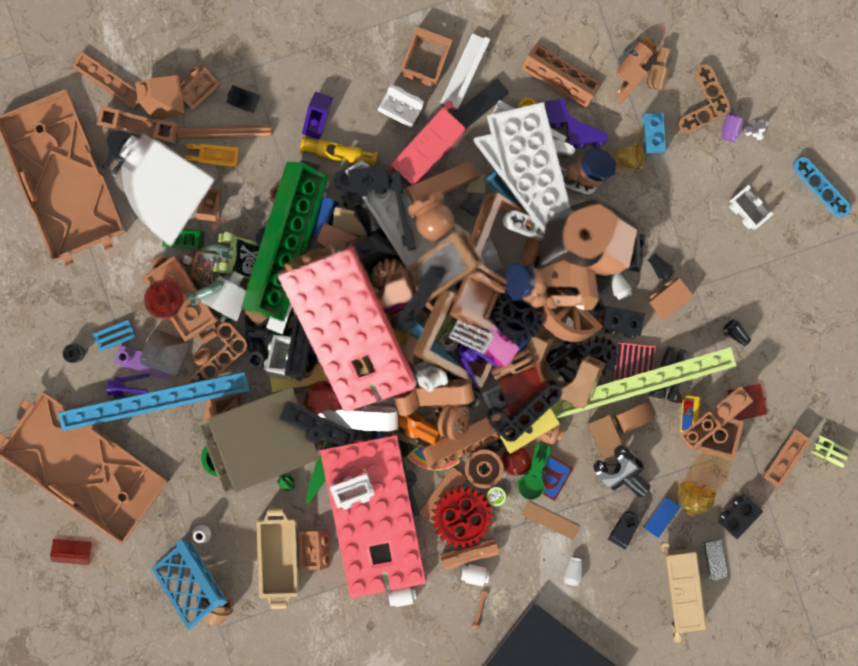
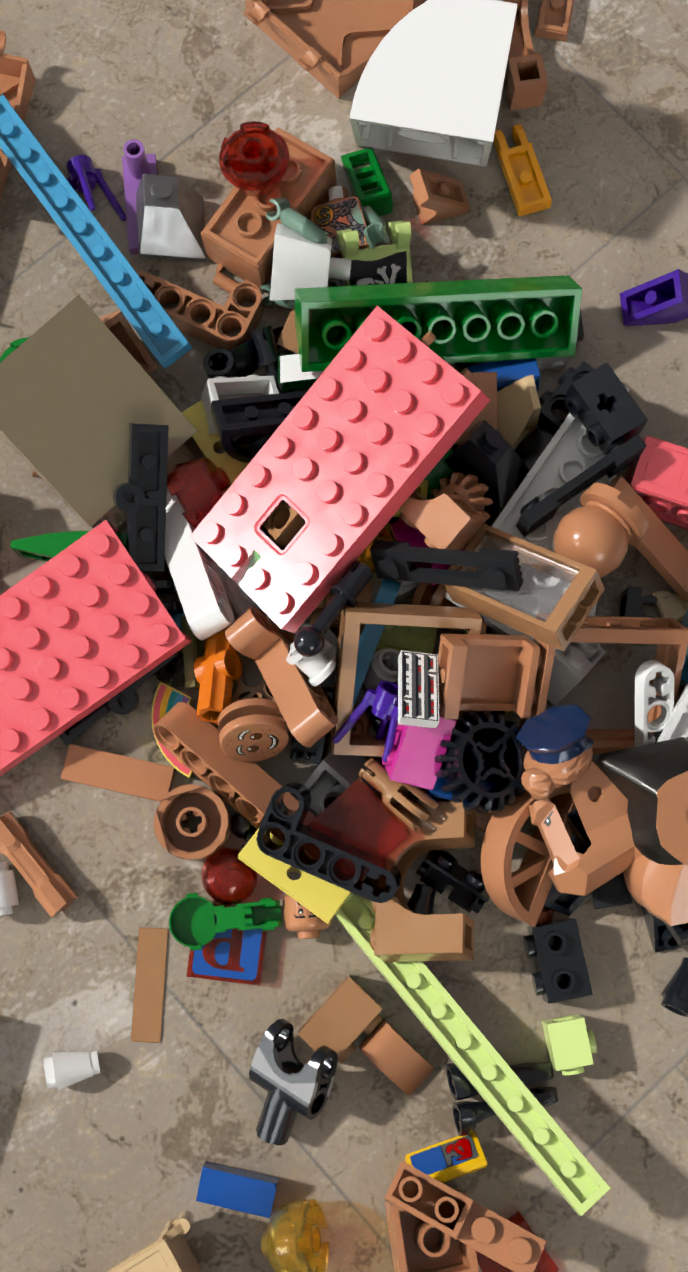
camera: 75 degrees right, 10 degrees down
(77, 353) = (111, 89): black wheel -> none
(99, 341) = (148, 123): dark azure tile -> none
(161, 96) = (579, 49): nougat slope -> none
(197, 86) = (617, 104): nougat bracket -> none
(202, 356) = (190, 282): nougat tile -> none
(231, 131) = (566, 175): nougat axle -> none
(242, 99) = (631, 176): black bracket -> none
(286, 482) = (34, 499): green plate -> none
(349, 154) = (614, 330): yellow piece -> none
(352, 490) = (56, 601): white window -> none
(427, 377) = (310, 640): none -> black pin
(470, 531) = (74, 848): red gear -> none
(496, 496) = (153, 867): tile -> none
(597, 350) = (492, 935): black gear -> none
(620, 286) = (616, 928): white cone -> none
(623, 533) = (178, 1128): black piece -> none
(633, 360) = (498, 1009): tile -> none
(663, 333) = (569, 1043): none -> yellowish green brick
(670, 299) = (636, 1030): nougat brick -> none
(736, 332) = (633, 1182): black cone -> none

